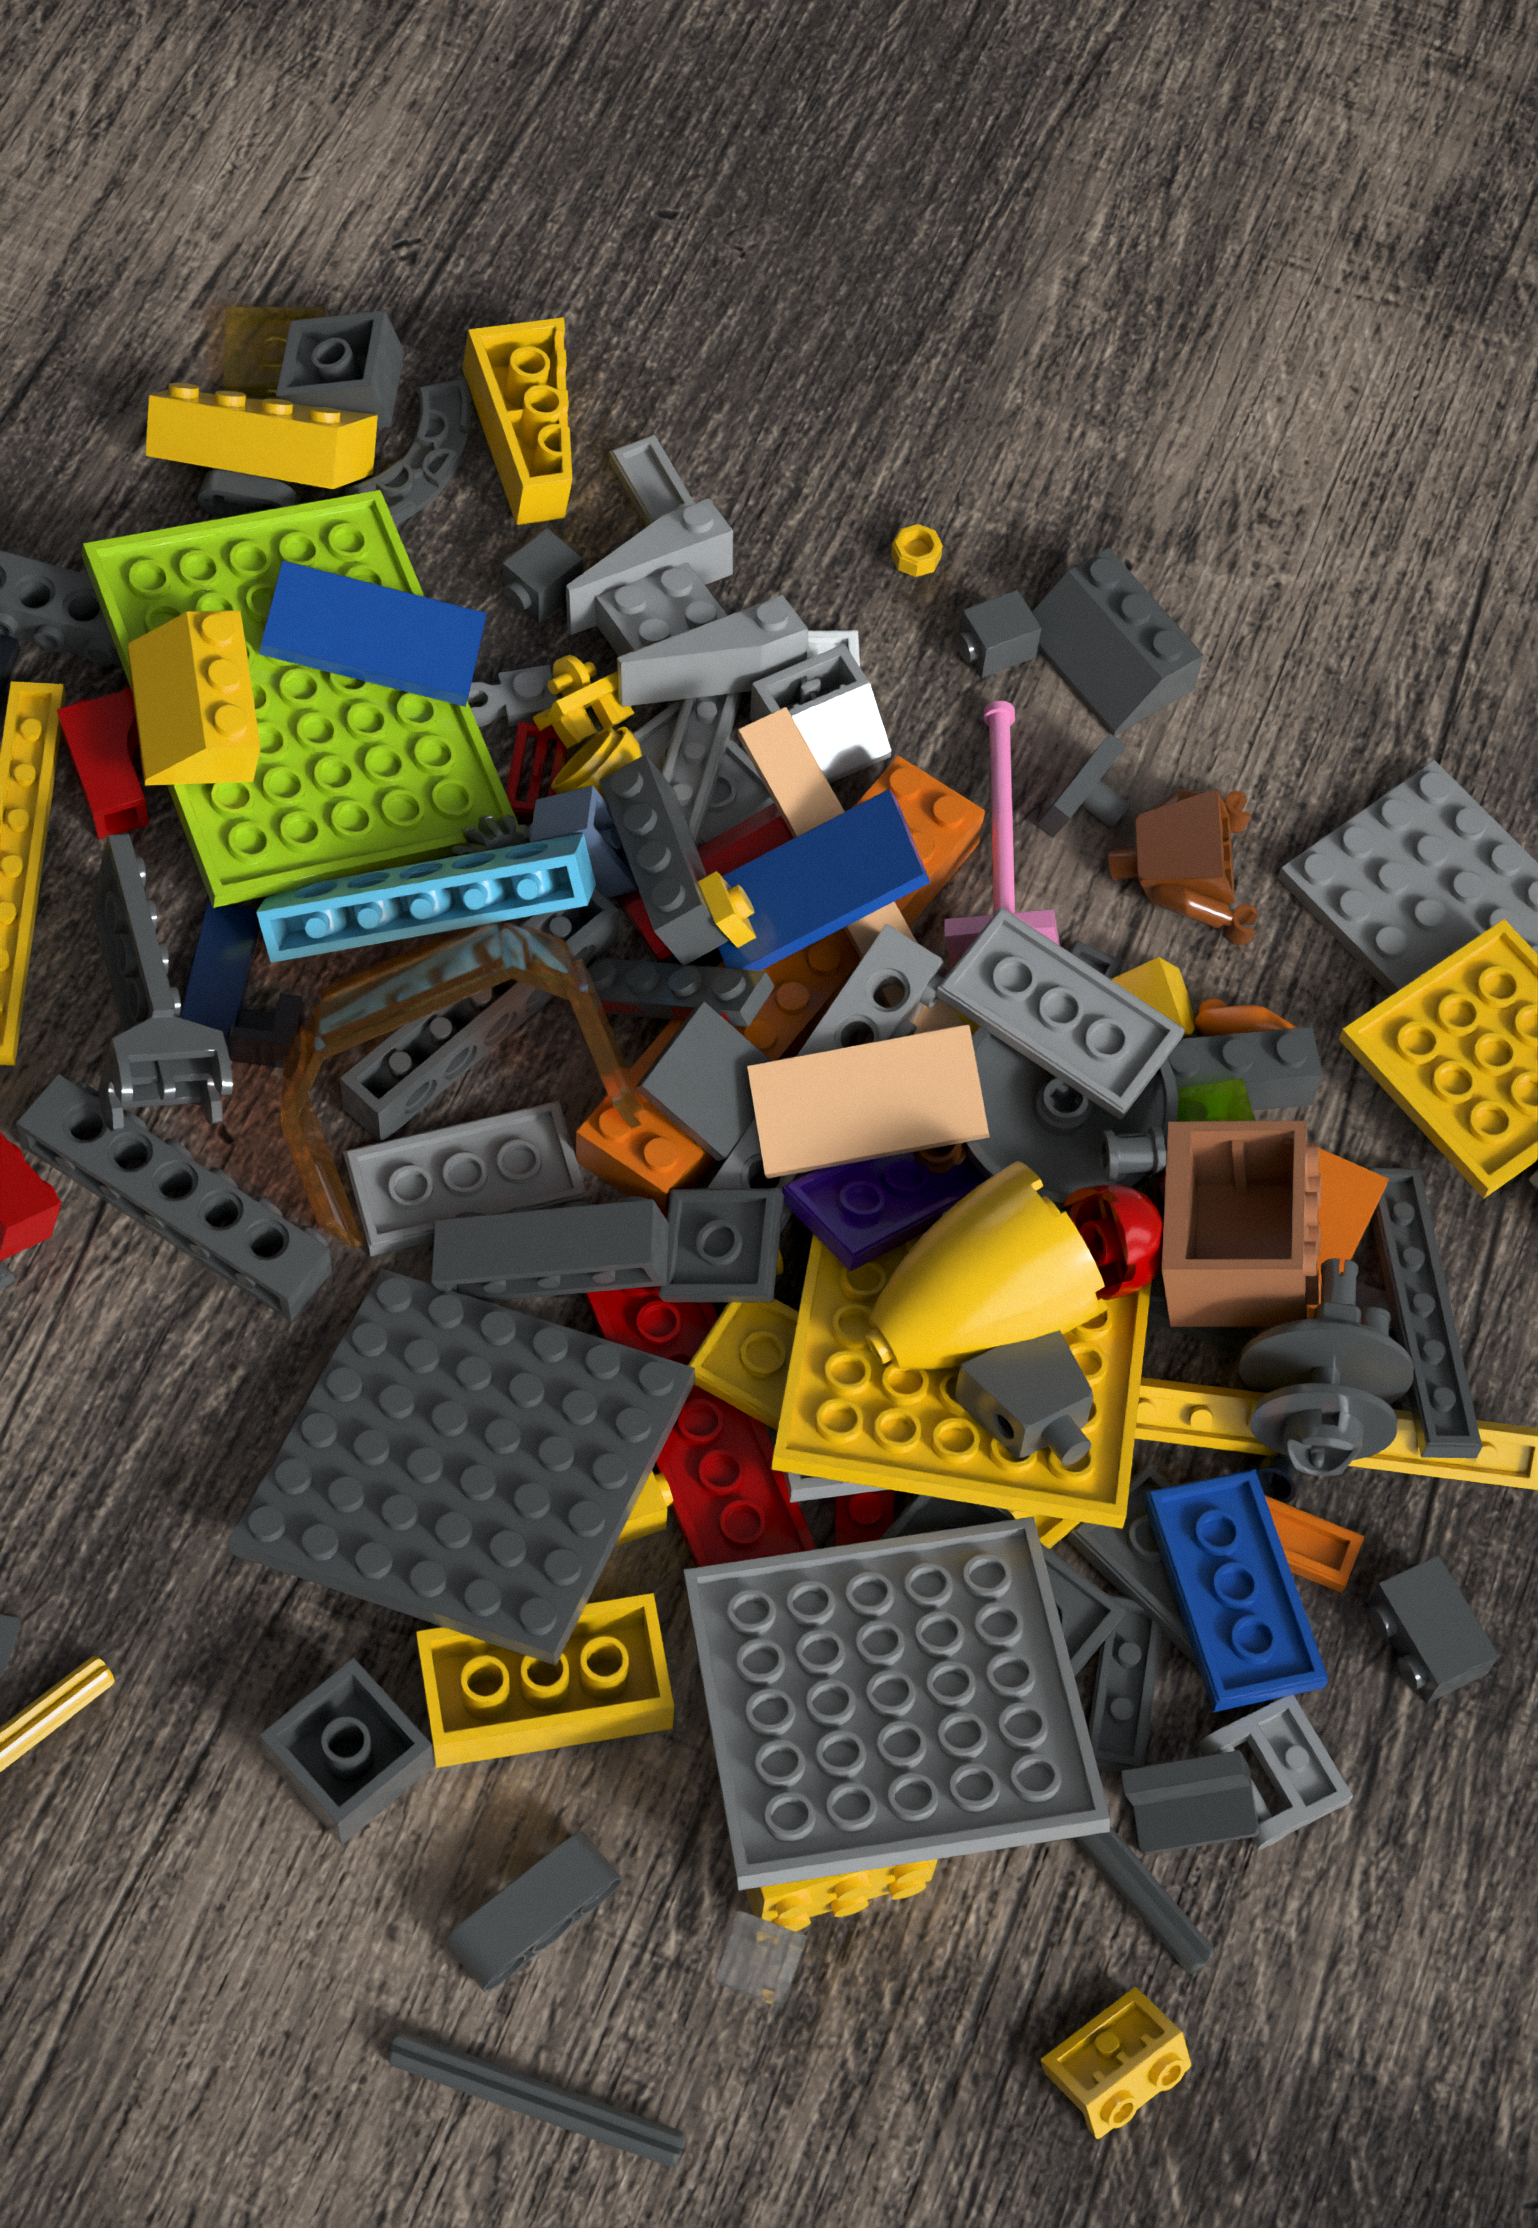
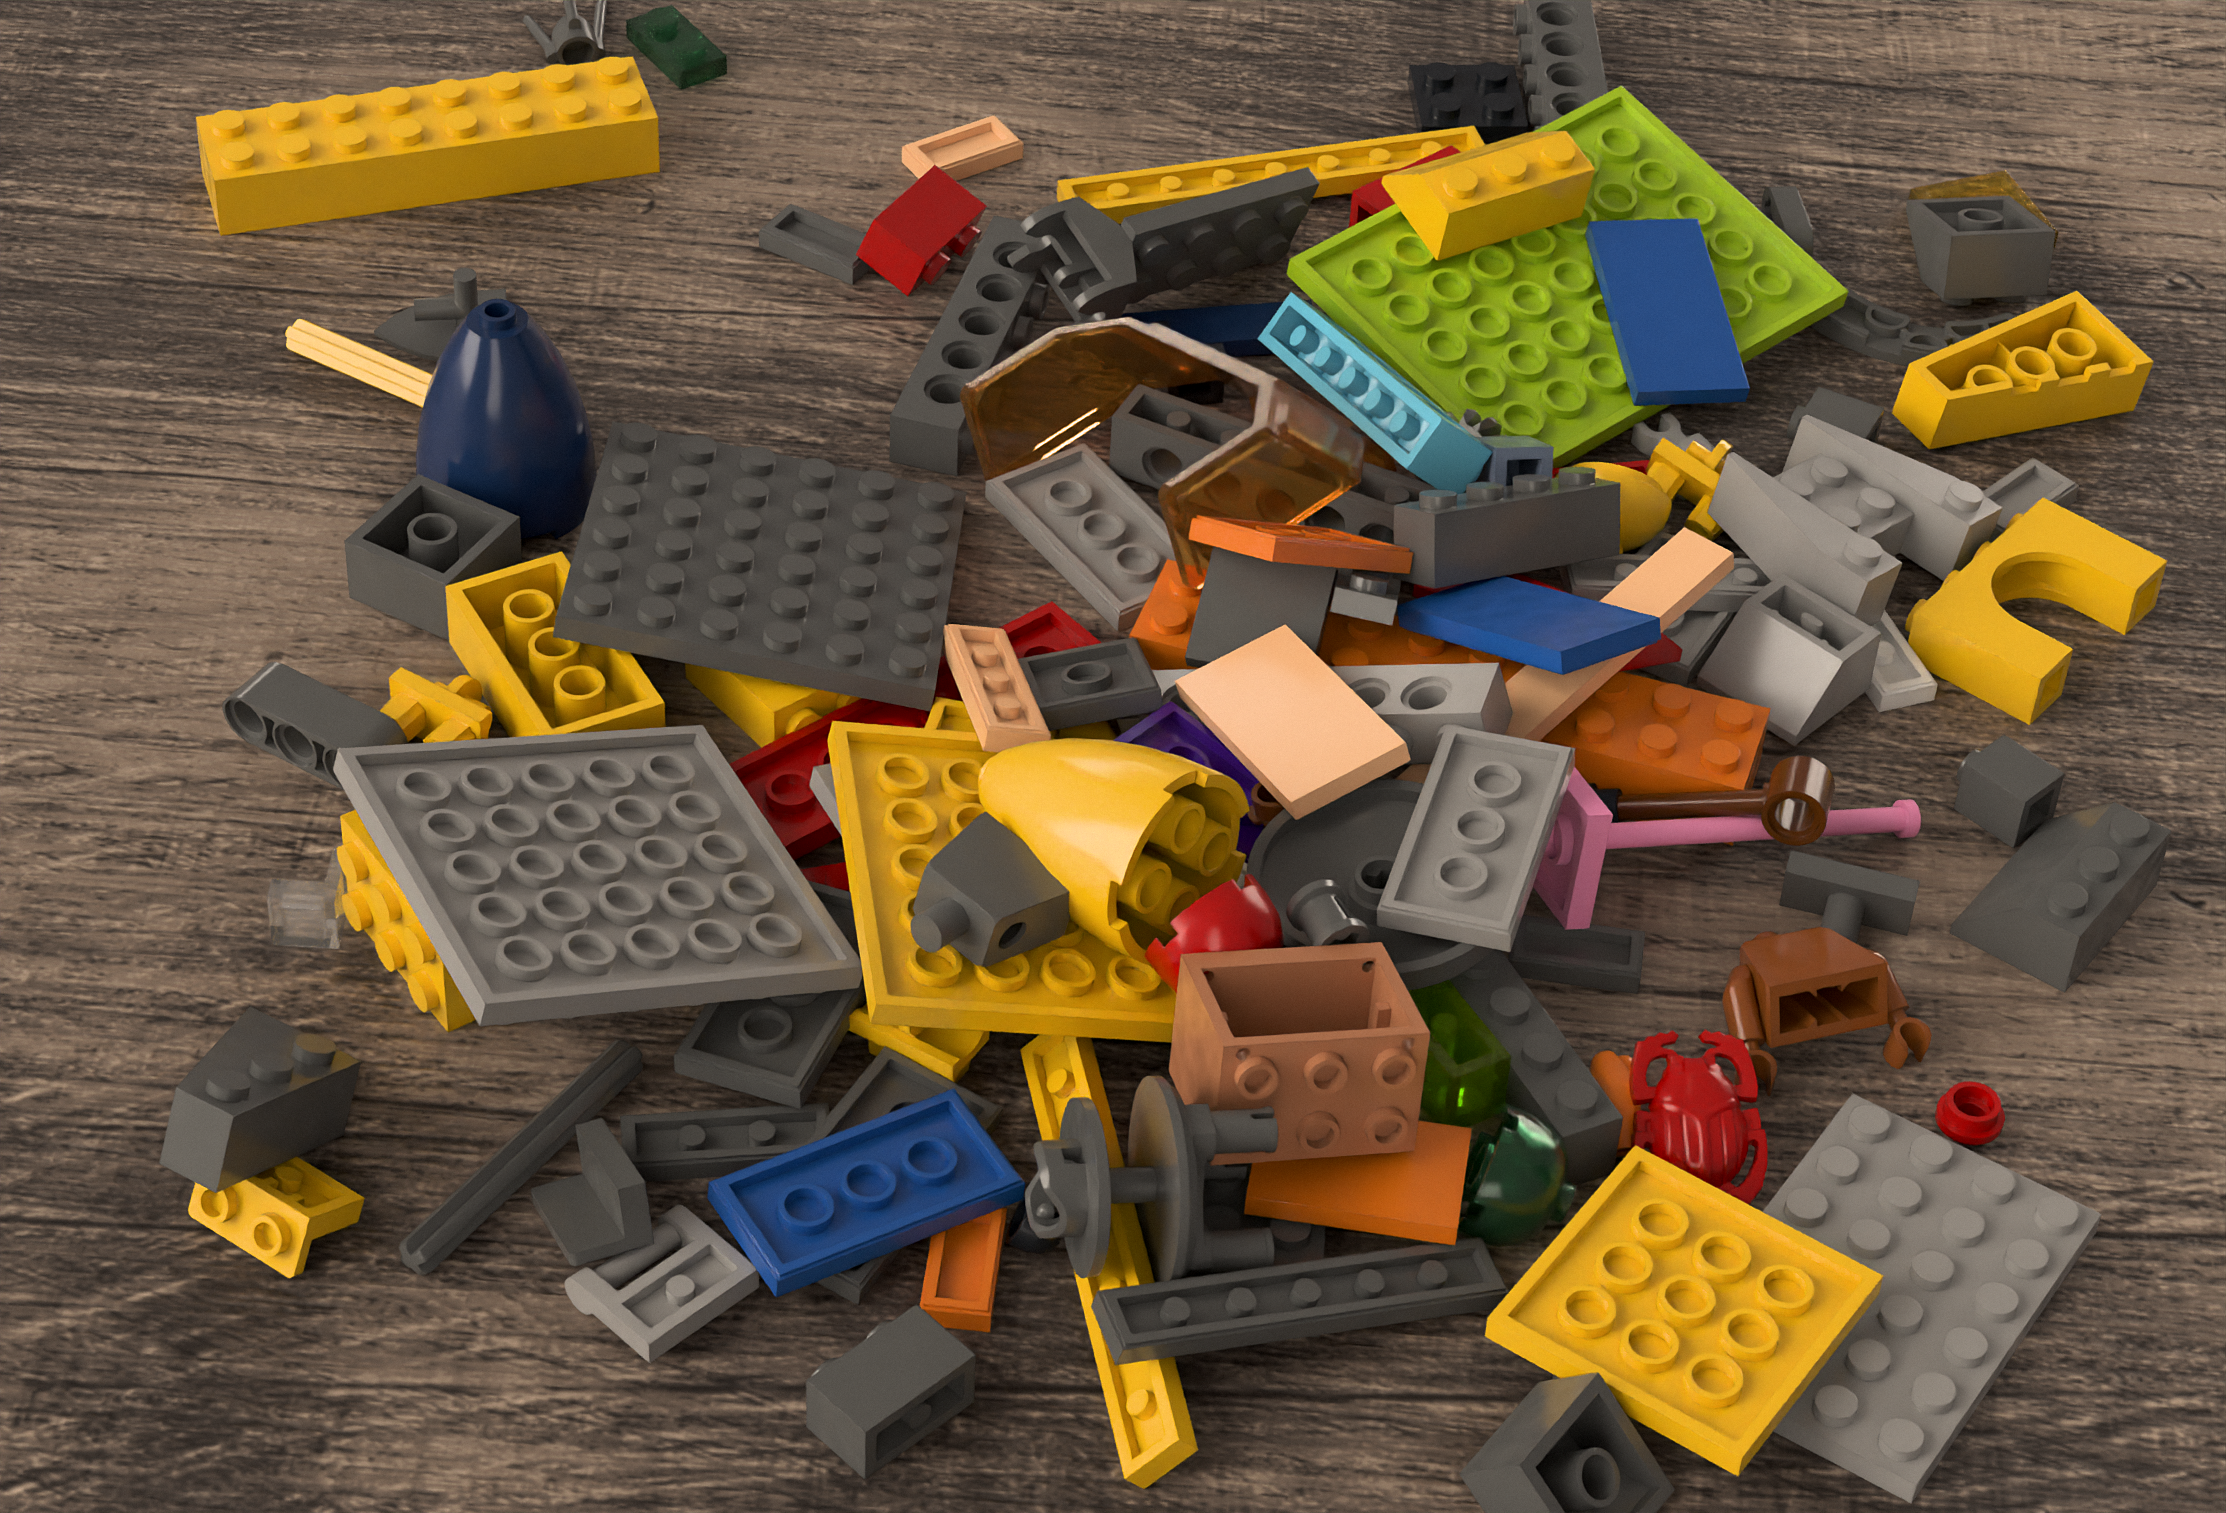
camera: 75 degrees right, 20 degrees down
(214, 1655) = (508, 422): none -> dark blue cylinder
(261, 436) = (1857, 210): yellow wedge -> none
(536, 2098) = (124, 778): dark grey axle -> none
(552, 1250) = (1026, 575): dark grey brick -> none
(582, 1782) = (438, 710): none -> yellow hips
(668, 1020) = (1300, 544): none -> orange tile
(722, 1318) = (993, 687): none -> light nougat tile
(729, 908) = (1459, 565): yellow plate -> none
(817, 583) = (2039, 555): none -> yellow arch
(916, 550) = (2077, 711): yellow tile -> none
(1013, 782) = (1782, 818): none -> reddish brown piece
(1043, 2049) = (257, 1102): none -> dark grey wedge
(1163, 989) = (1607, 1013): yellow brick -> none
(1297, 978) = (1698, 1112): none -> red shield
(1317, 789) = (1970, 1113): none -> red plate
(1339, 1118) = (1515, 1180): none -> clear green cylinder

